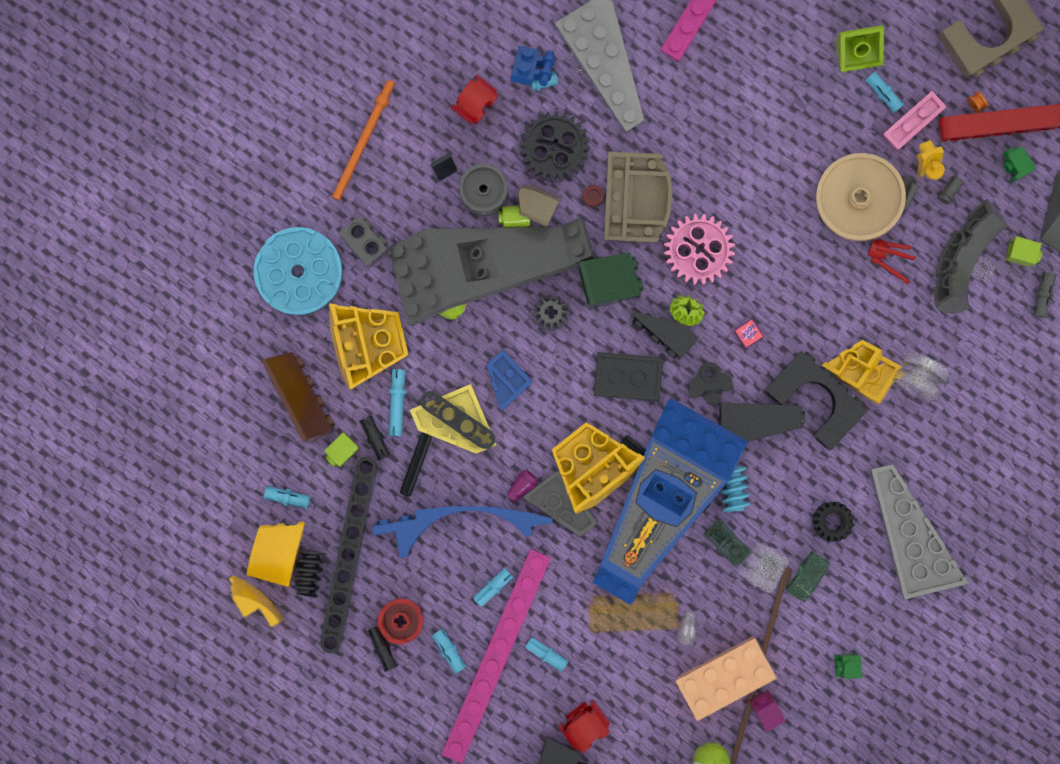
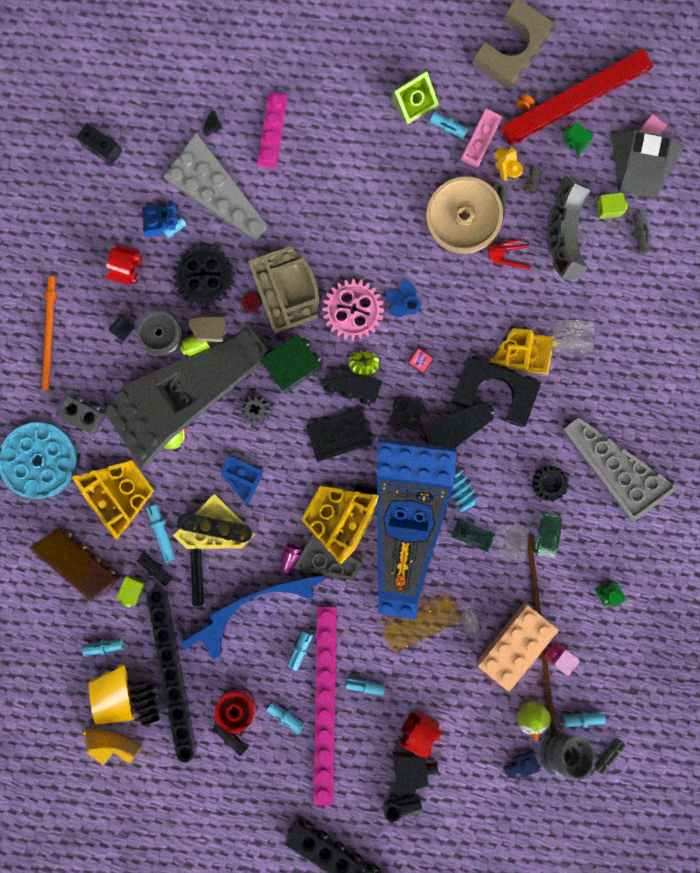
camera: 20 degrees left, 0 degrees up
(754, 258) = (400, 298): none -> blue plate

